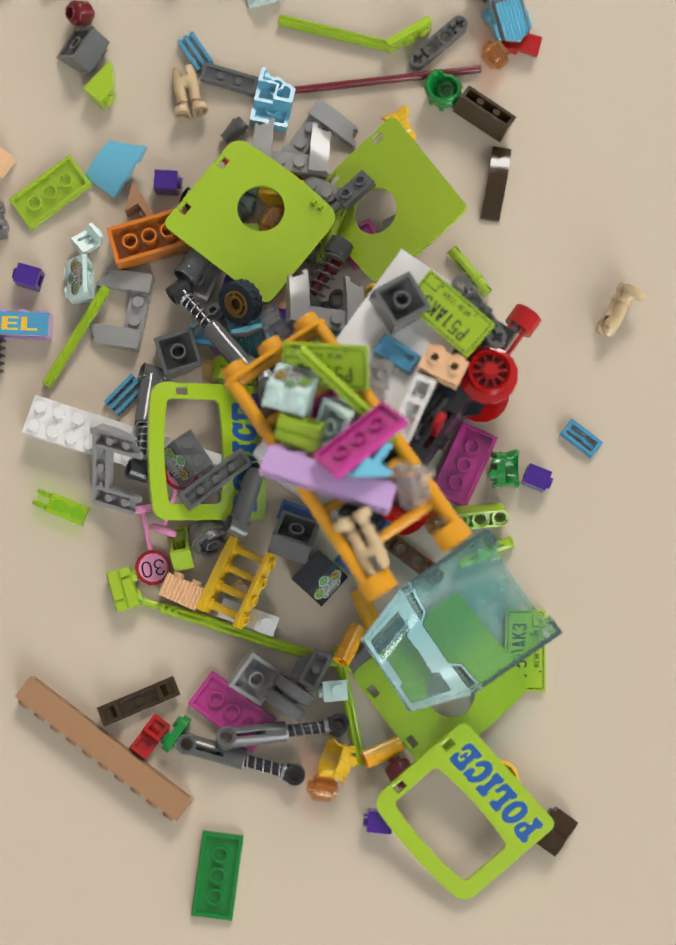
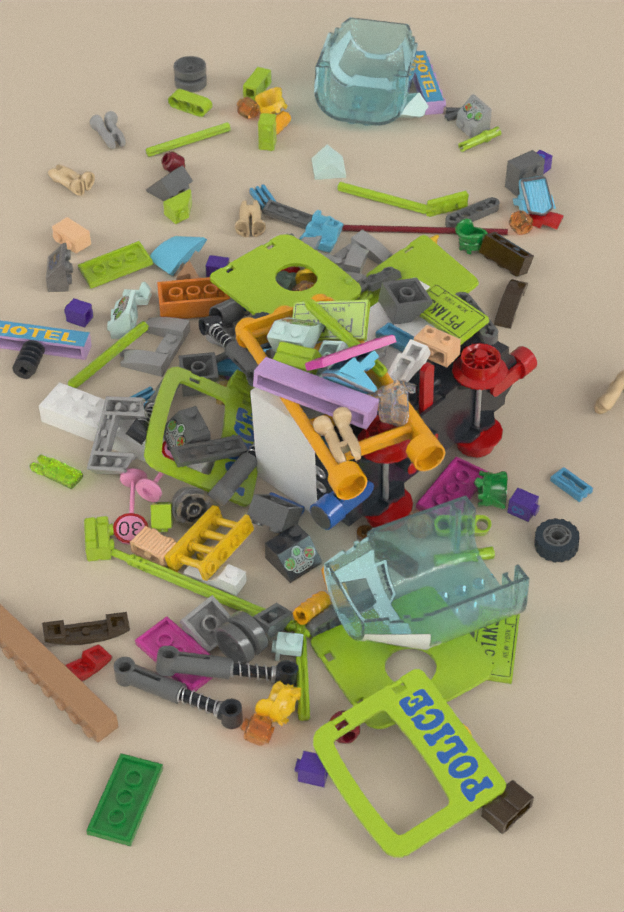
camera: 10 degrees right, 35 degrees down
(170, 739) = (106, 665): green plate -> none
(381, 752) = (326, 703): light orange axle -> none
(585, 515) = (557, 540): none -> black wheel

